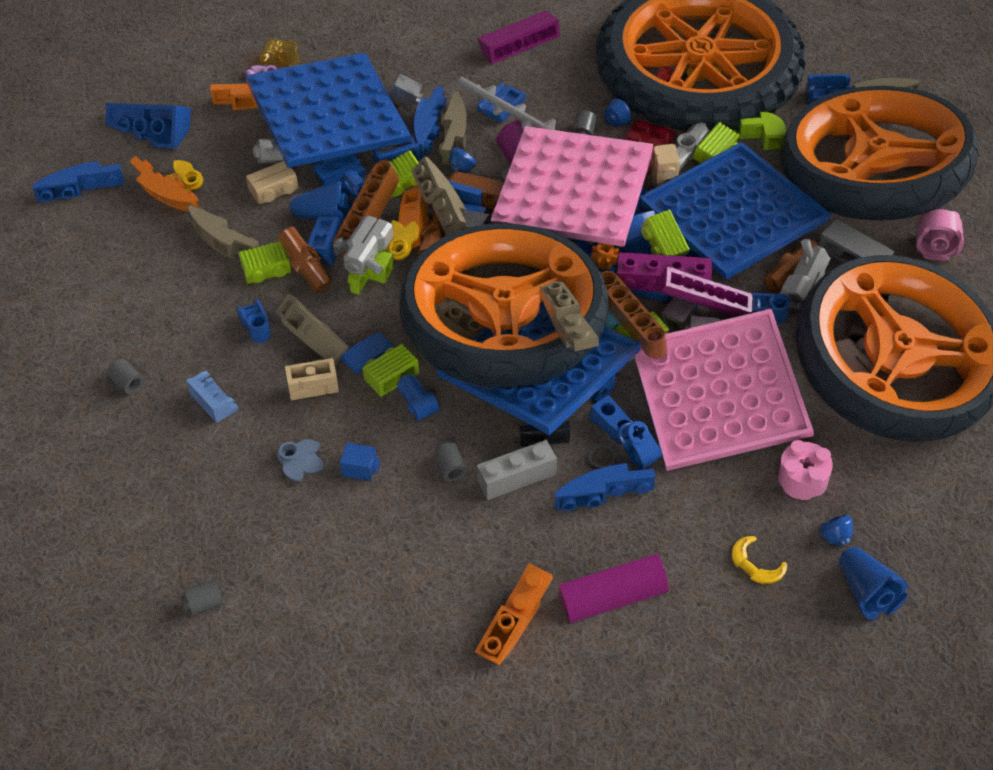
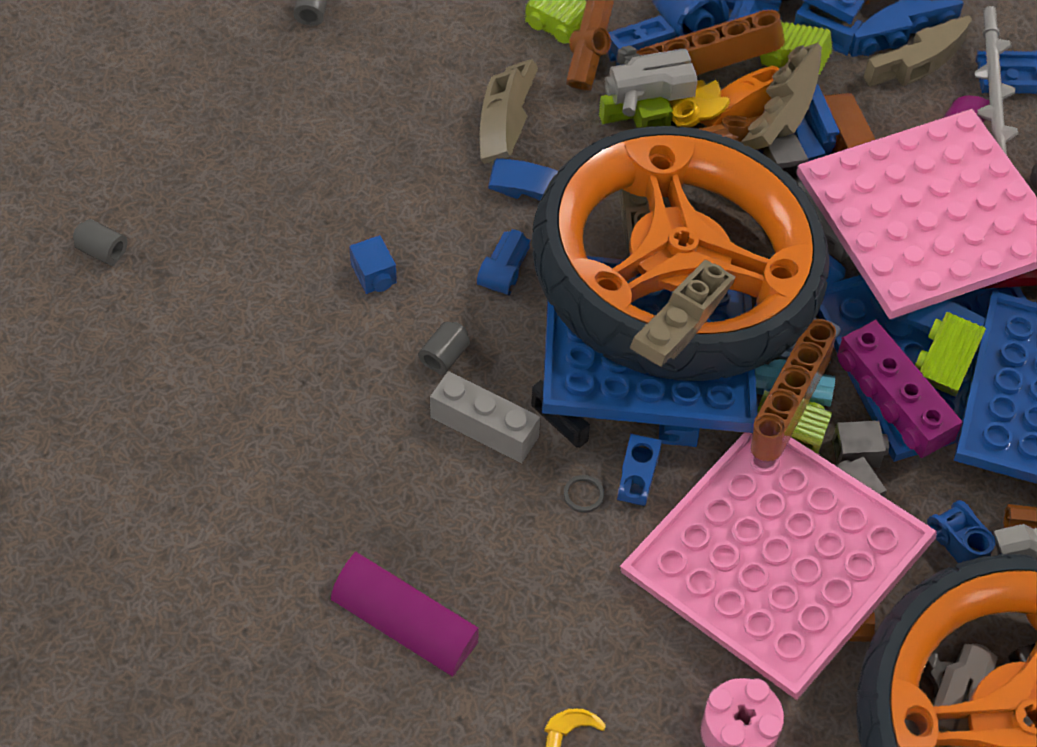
camera: 50 degrees right, 5 degrees up
(211, 397) = (349, 86): medium blue hinge -> none
(255, 321) = (477, 58): blue piece -> none
(303, 458) = (337, 216): sand blue plate -> none
(312, 379) = (439, 152): tan brick -> none
(388, 369) = (510, 210): lime brick -> none
(461, 160) = (878, 90): blue cone -> none
(515, 615) = (288, 538): orange slope -> none
(593, 486) = (526, 508): blue slope -> none
(604, 255) = (864, 310): orange gear -> none
(639, 445) = (622, 523): blue piece -> none
(704, 292) = (904, 449): magenta brick -> none

